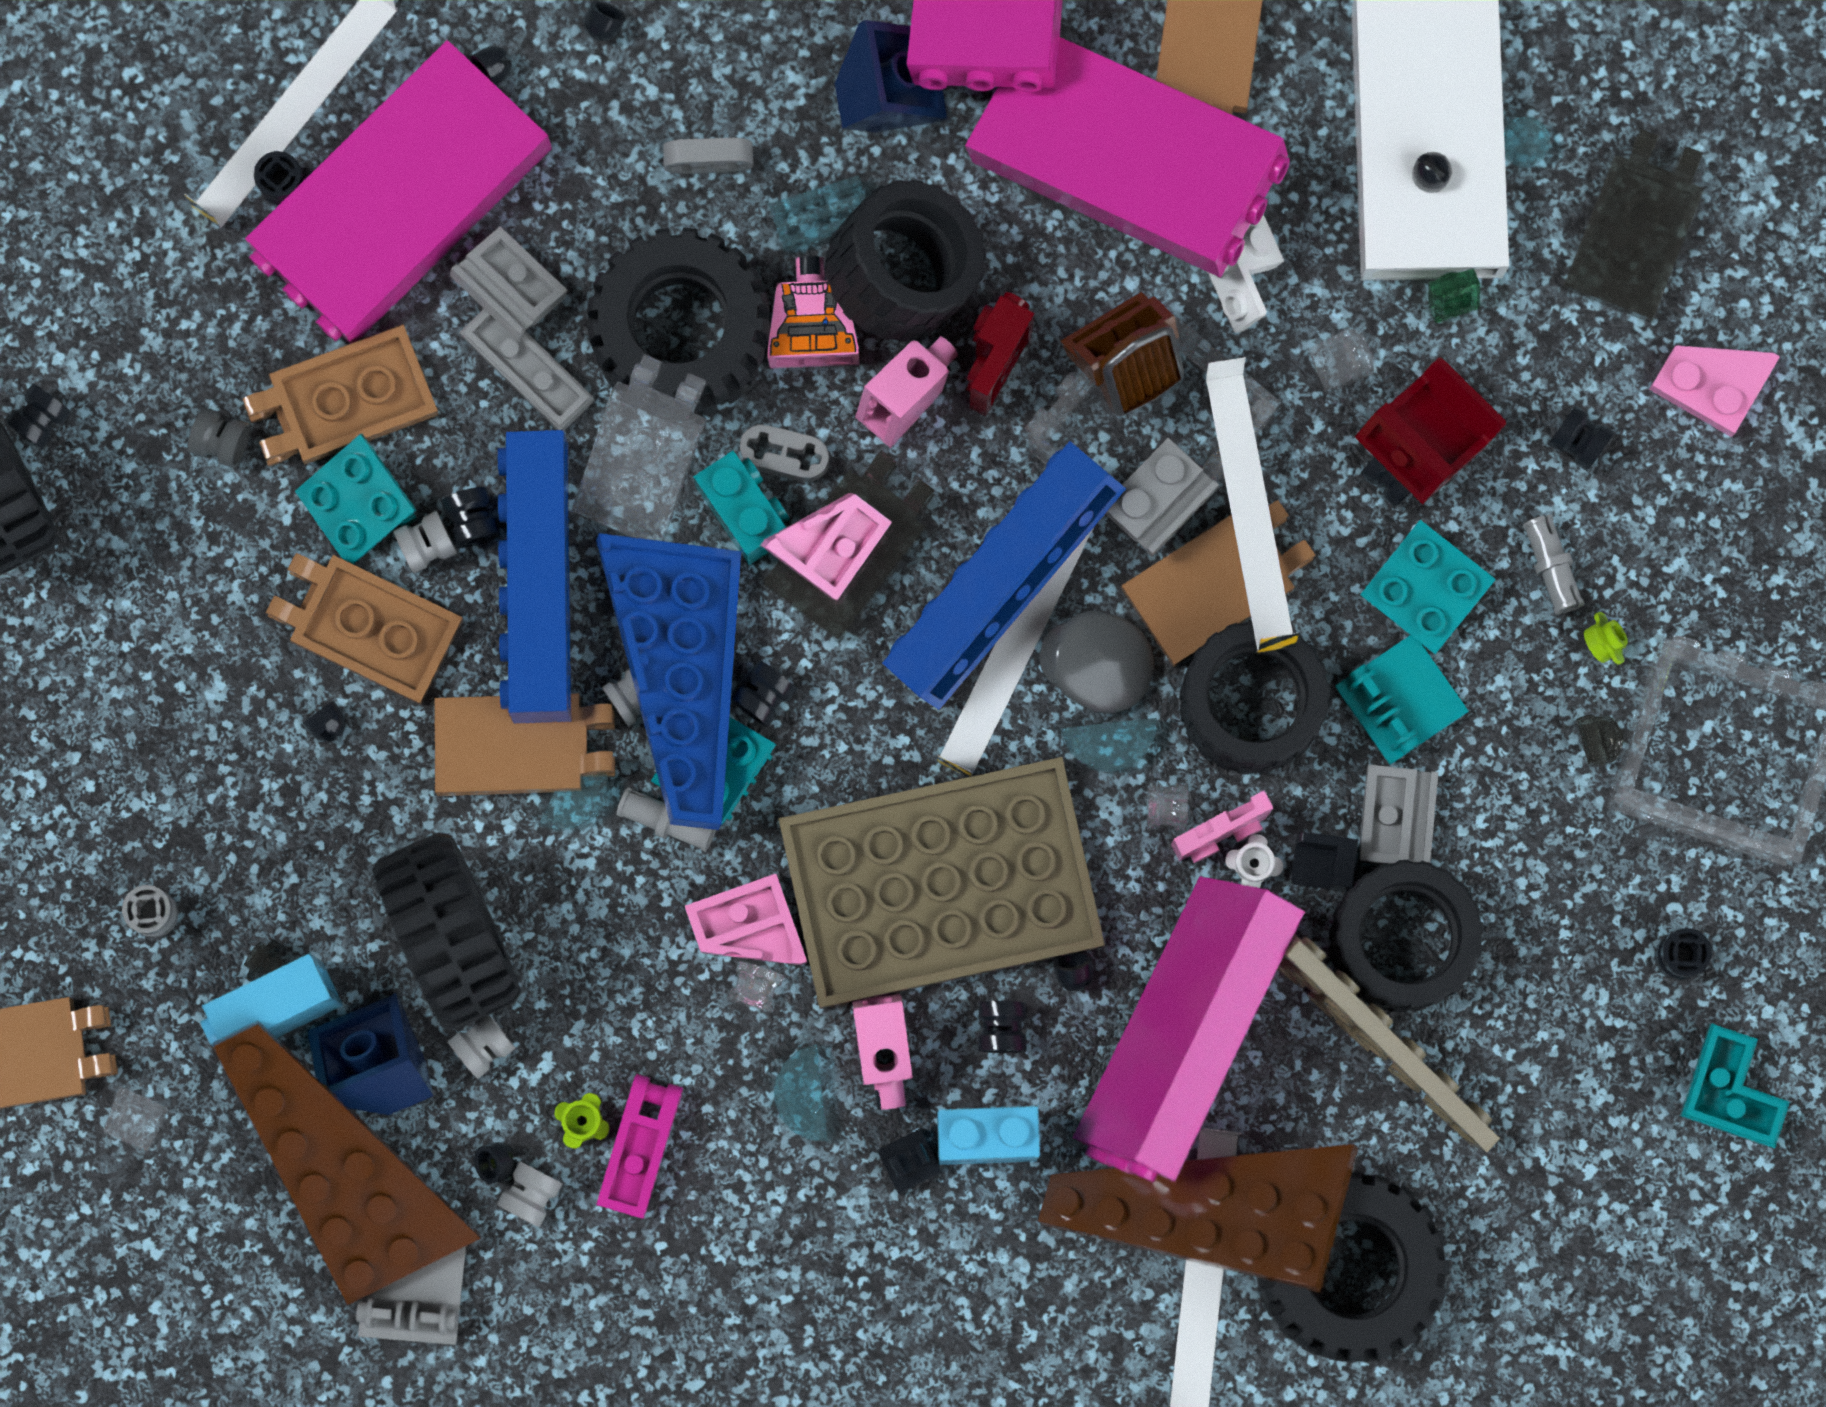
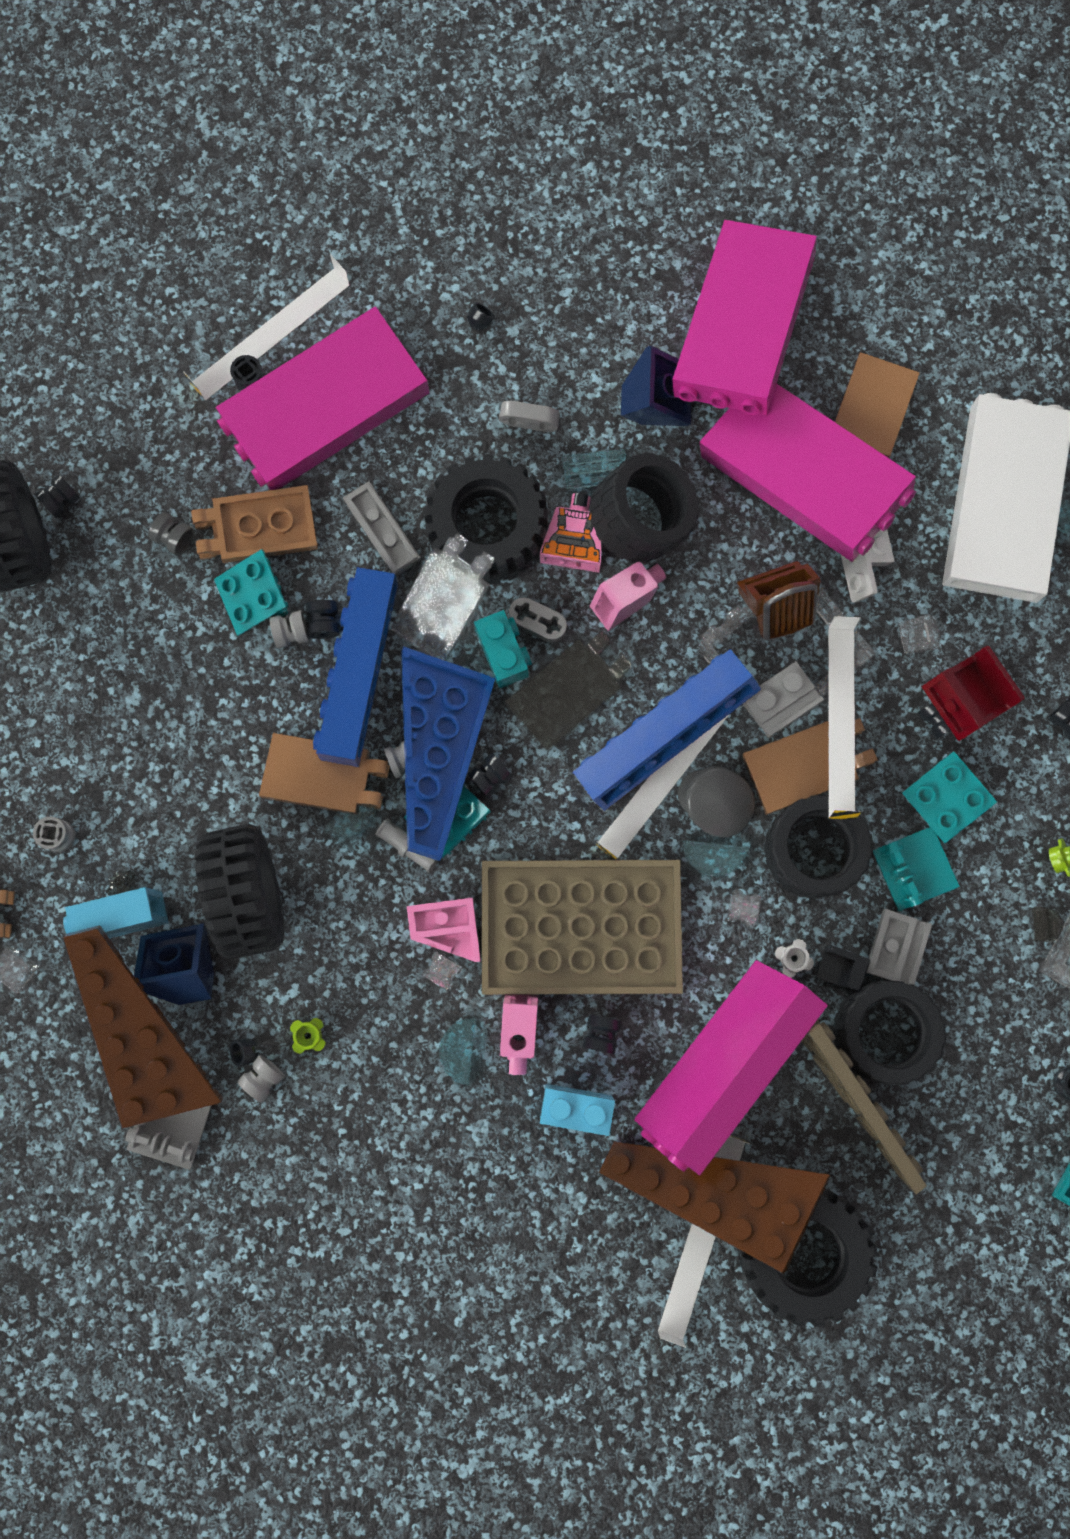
camera: 15 degrees right, 0 degrees up
(326, 723) = (198, 734): black hinge -> none
(368, 626) = (241, 676): medium nougat tile -> none
(481, 1045) = (251, 971): light grey wheel -> none
(490, 63) = (401, 329): black hinge -> none
(508, 283) = (381, 471): light grey plate -> none
(639, 1148) = (341, 1063): dark pink plate -> none
(830, 543) = (555, 684): bright pink wing -> none
(909, 1161) = (520, 1111): black tile -> none
(1000, 341) = (696, 574): dark red plate -> none
(1074, 970) = (658, 1005): black hinge -> none
(1241, 822) = (790, 929): bright pink wing -> none
(1426, 178) = (1004, 524): black hinge -> none
(1453, 295) = (1004, 606): clear green plate -> none
(1553, 564) = (1036, 800): light grey pin -> none

